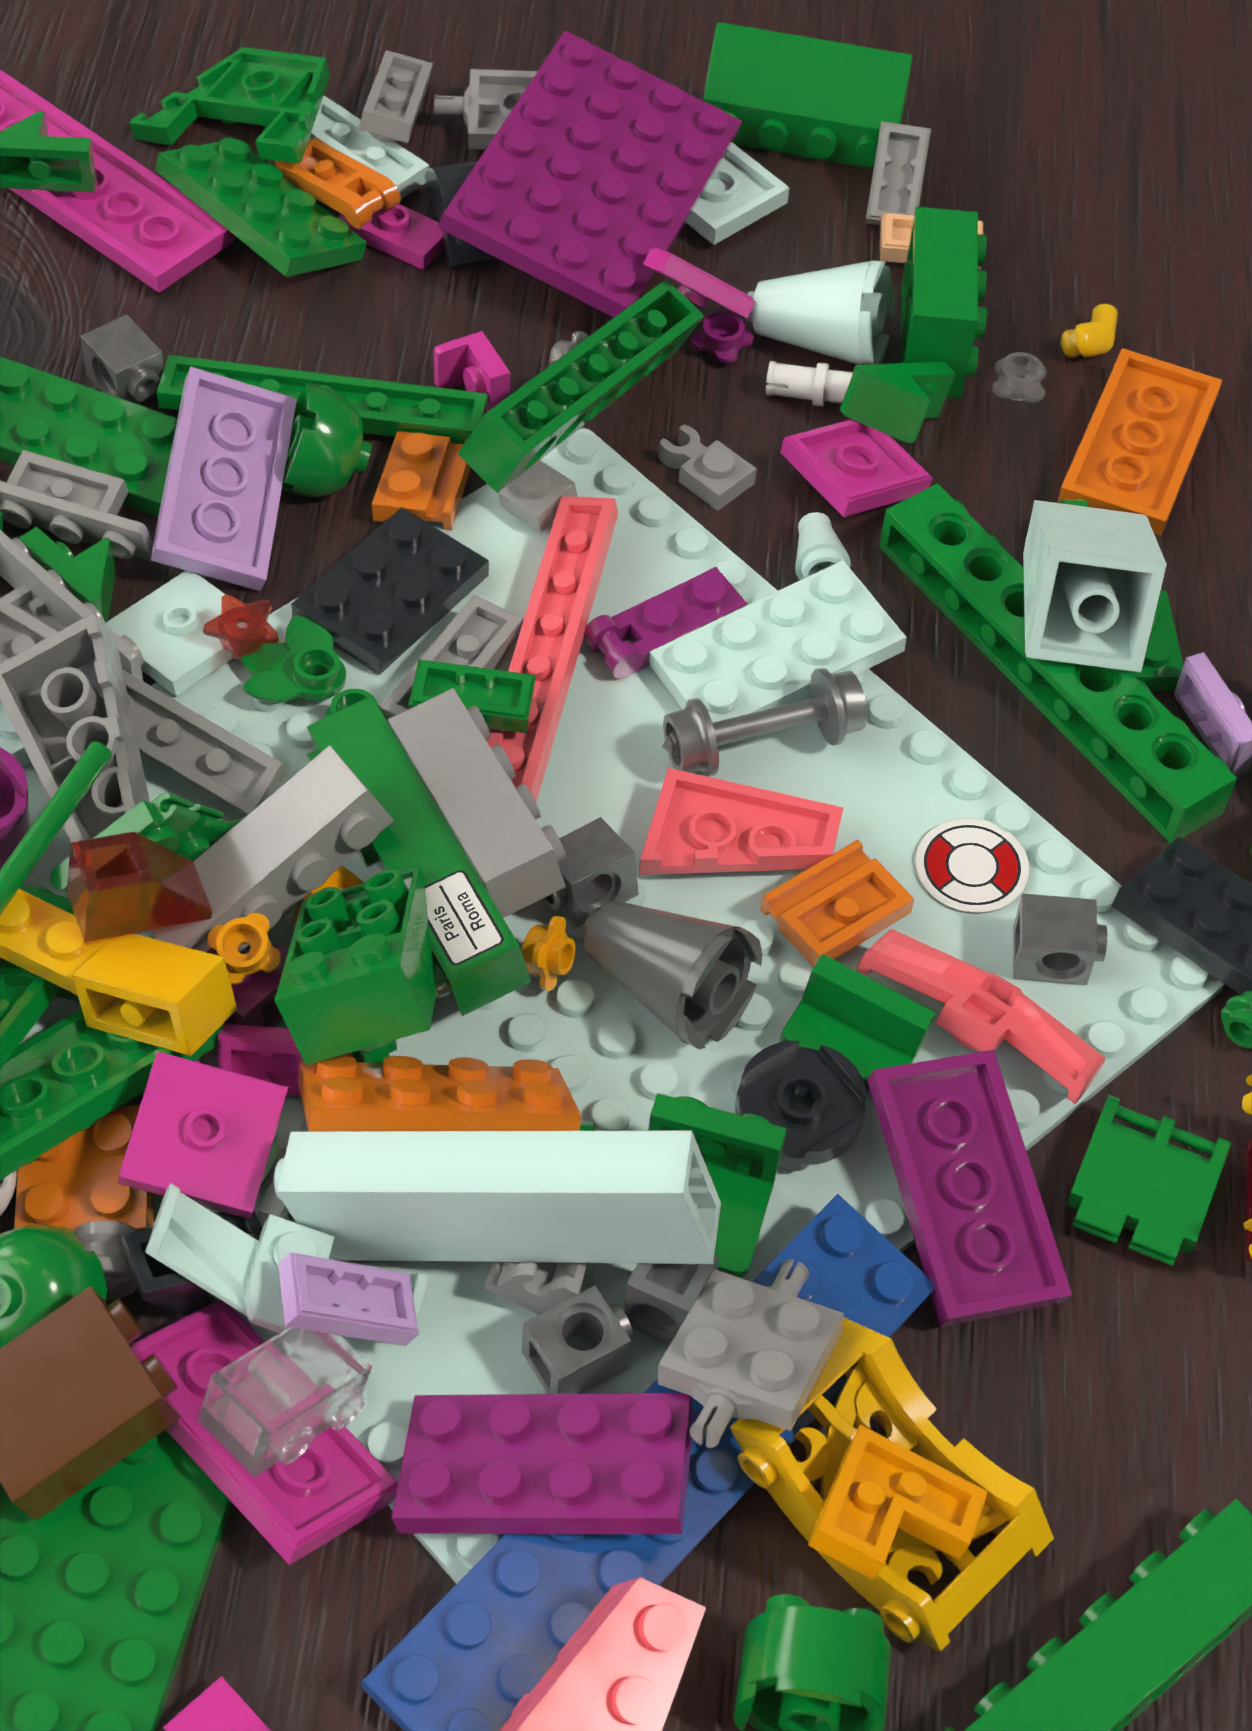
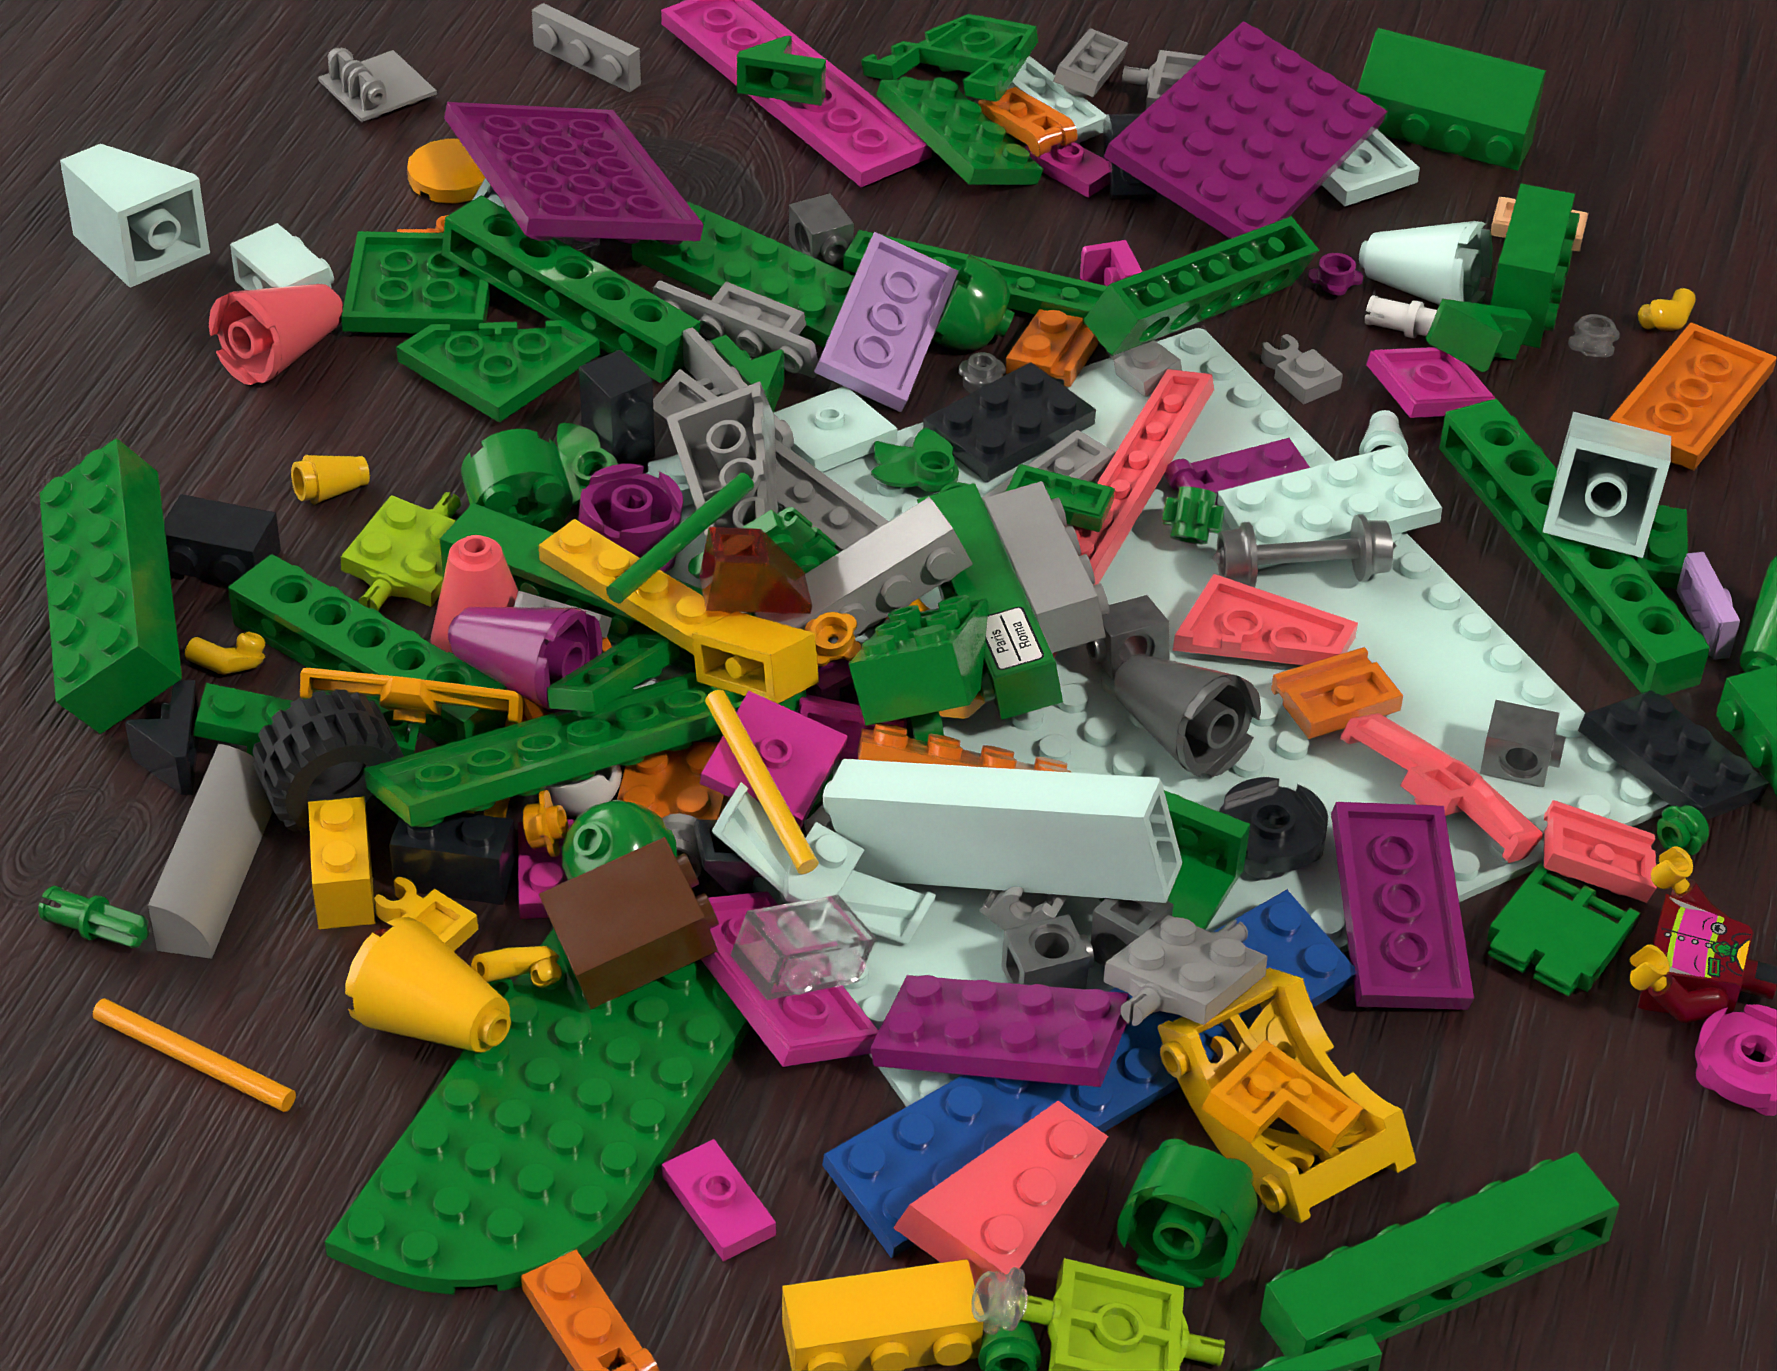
camera: 15 degrees right, 10 degrees down
(195, 1177) = (761, 782): none -> yellow bar
(242, 640) = (879, 437): clear red plate -> none
(345, 526) = (980, 371): none -> flat silver plate
(347, 1299) = (866, 889): lavender plate -> none
(549, 952) = (1083, 688): light orange plate -> none
(629, 691) = (1193, 515): none -> green gear
(697, 284) = (1320, 226): dark pink plate -> none
(857, 1019) = (1335, 768): green panel -> none
(897, 171) = (1519, 162): light grey plate -> none
(972, 865) = (1462, 686): sticker -> none
(1169, 1067) = (1599, 851): none -> coral plate

